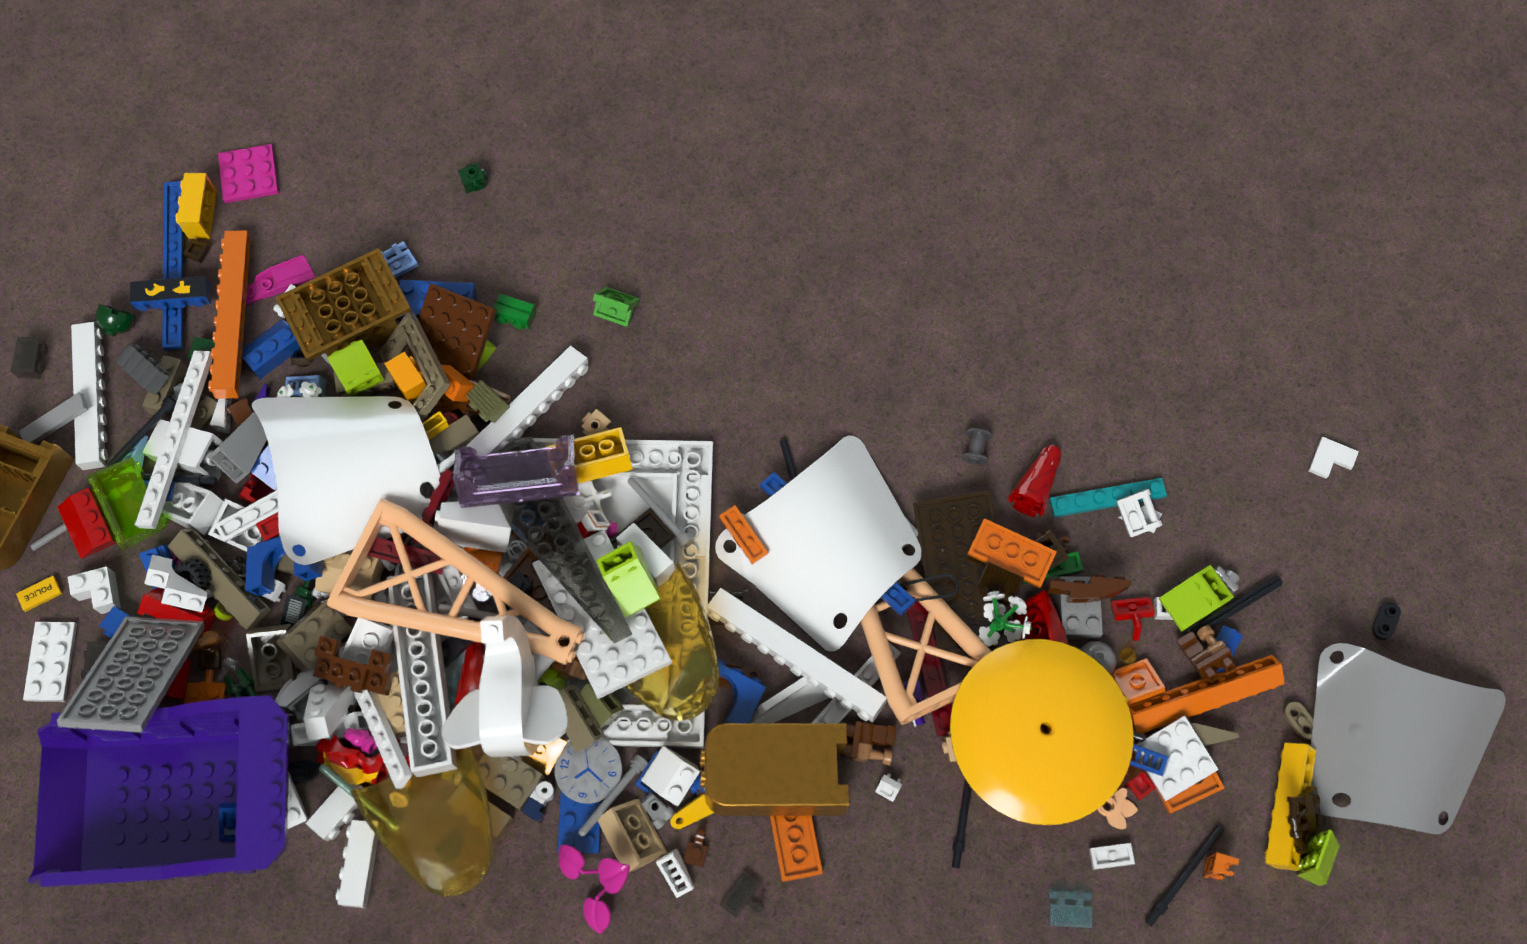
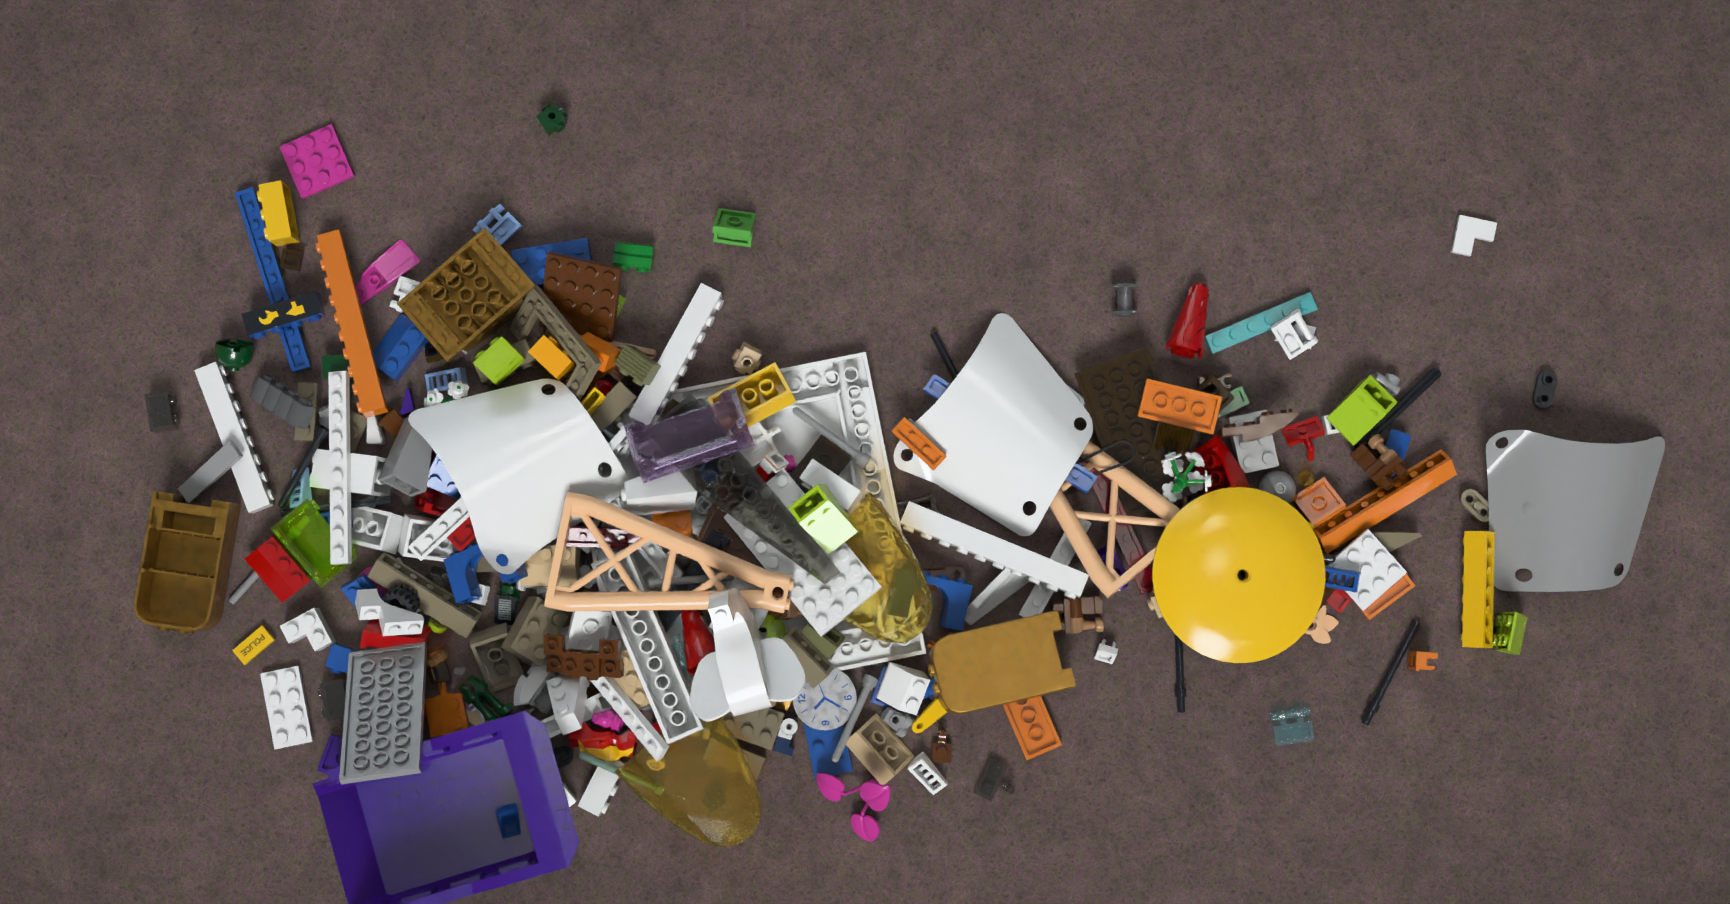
camera: 10 degrees left, 15 degrees up
(358, 865) = (636, 832): white brick -> none
(437, 497) = (618, 475): dark red plate -> none
(1111, 856) = (1321, 670): white plate -> none
(1310, 817) = (1492, 599): dark brown plate -> none

